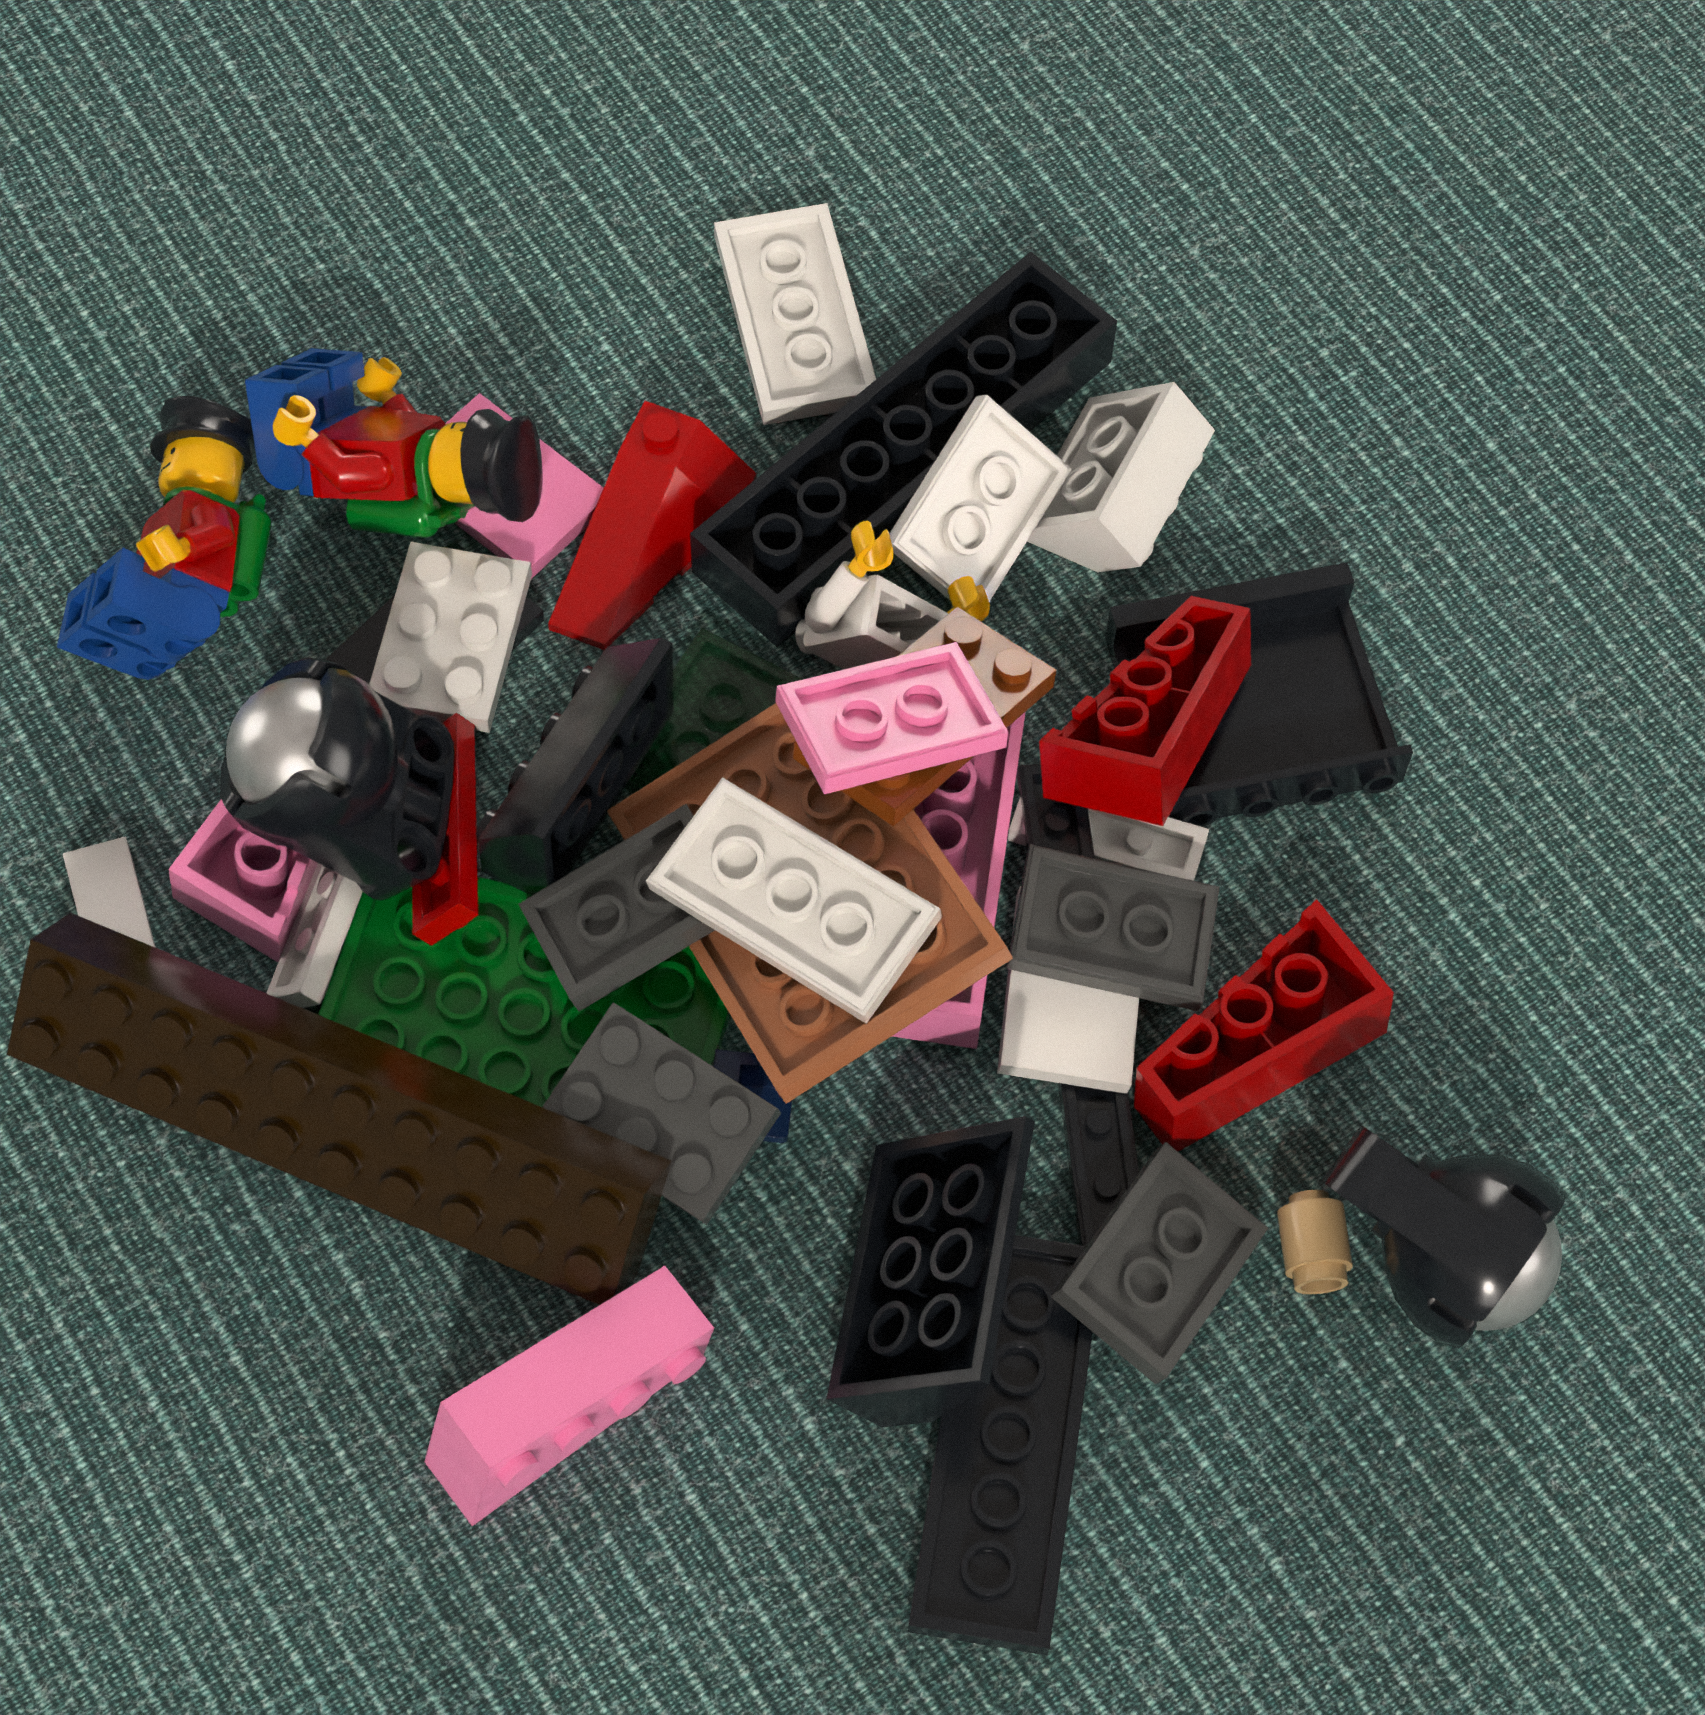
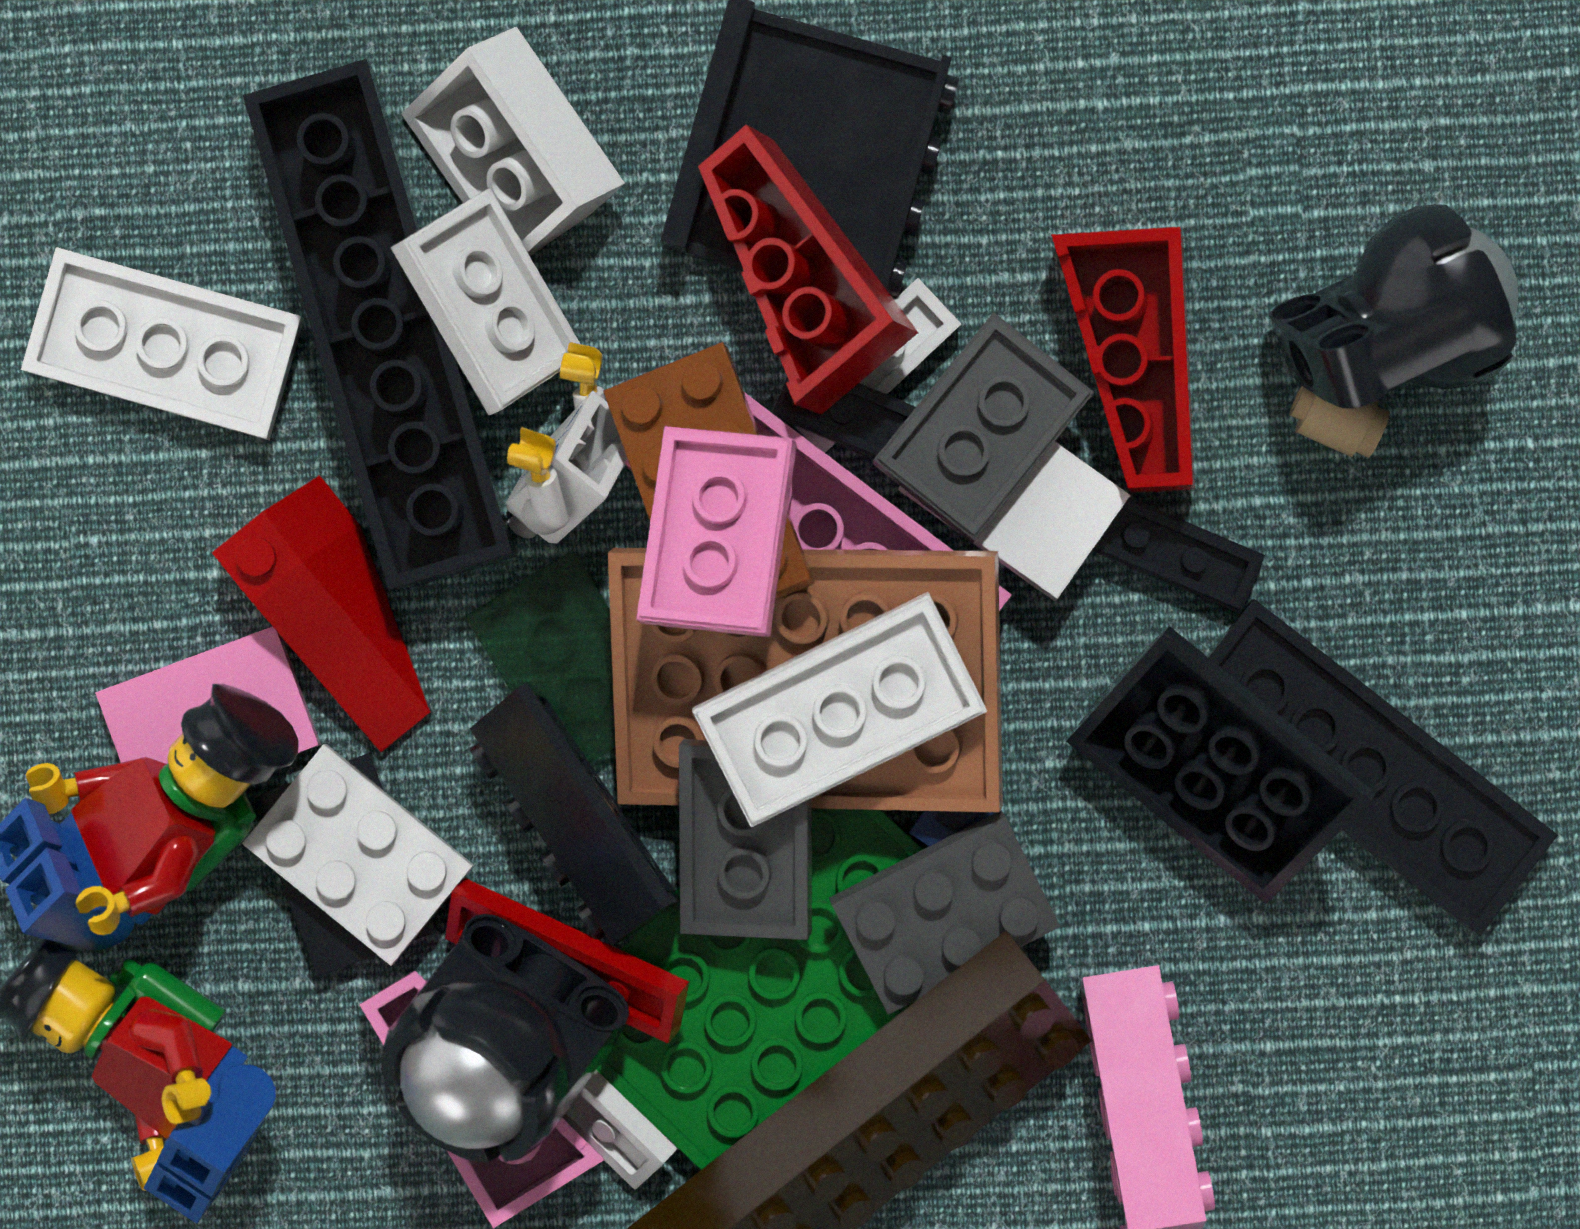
camera: 55 degrees left, 25 degrees up
(1160, 1263) = (1293, 560): dark grey plate -> none

